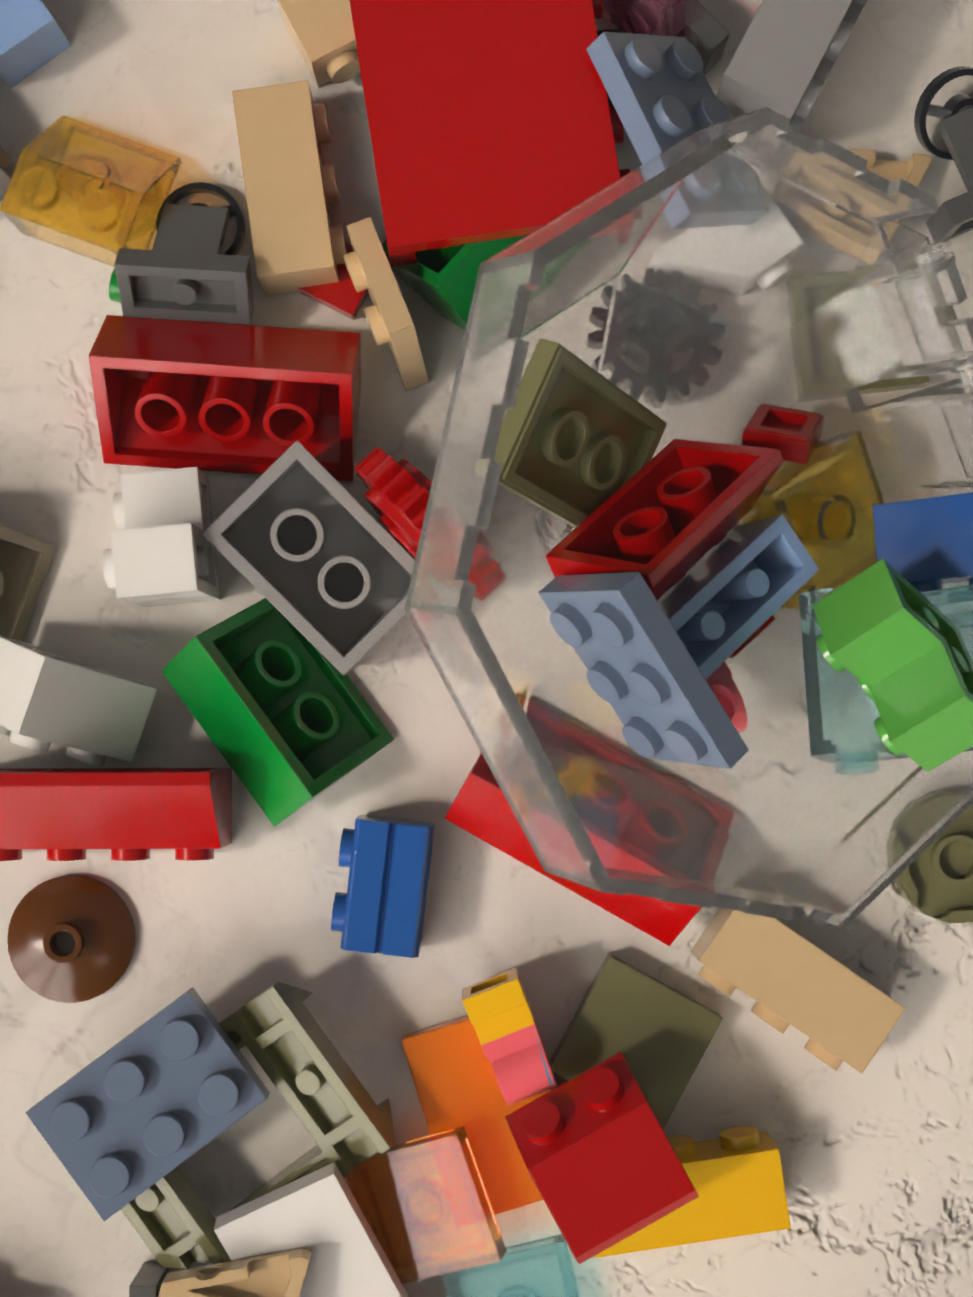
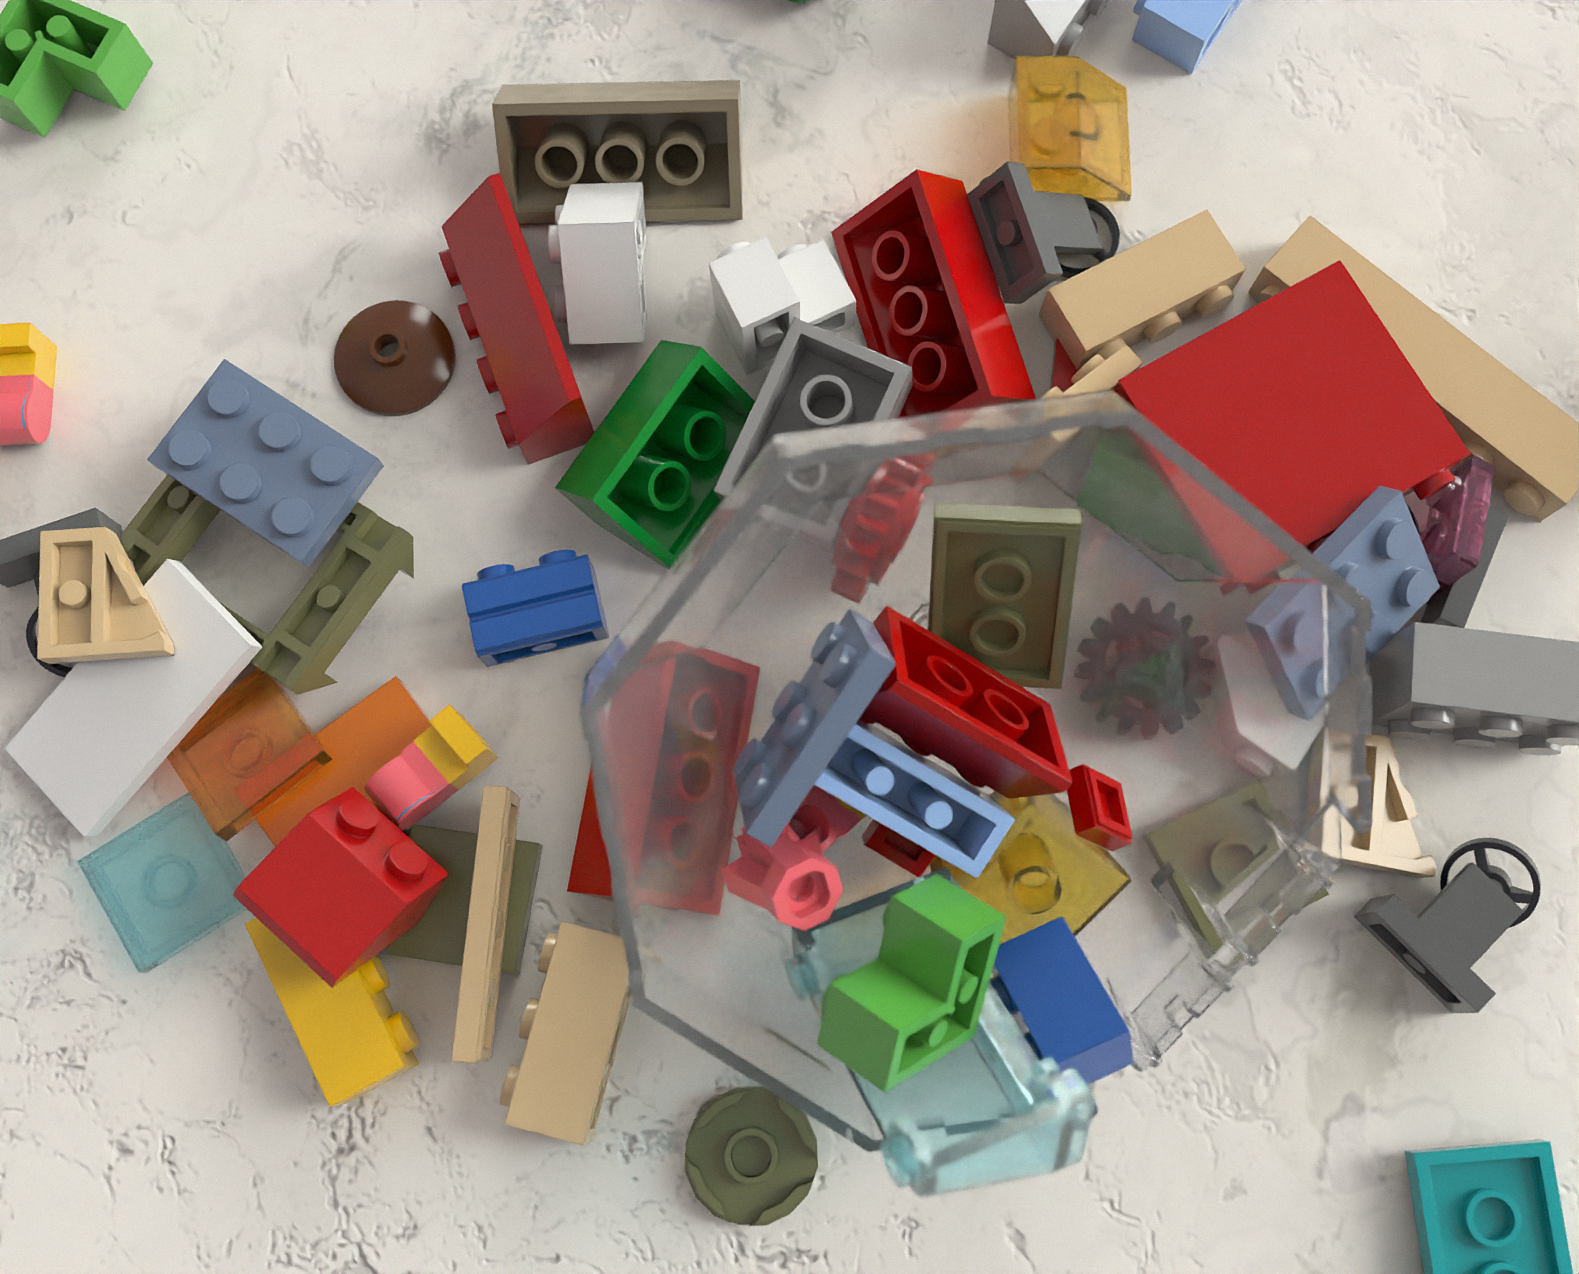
camera: 75 degrees right, 10 degrees down
(677, 1031) = (486, 925): none -> tan tile
(781, 740) = (785, 879): none -> coral rock

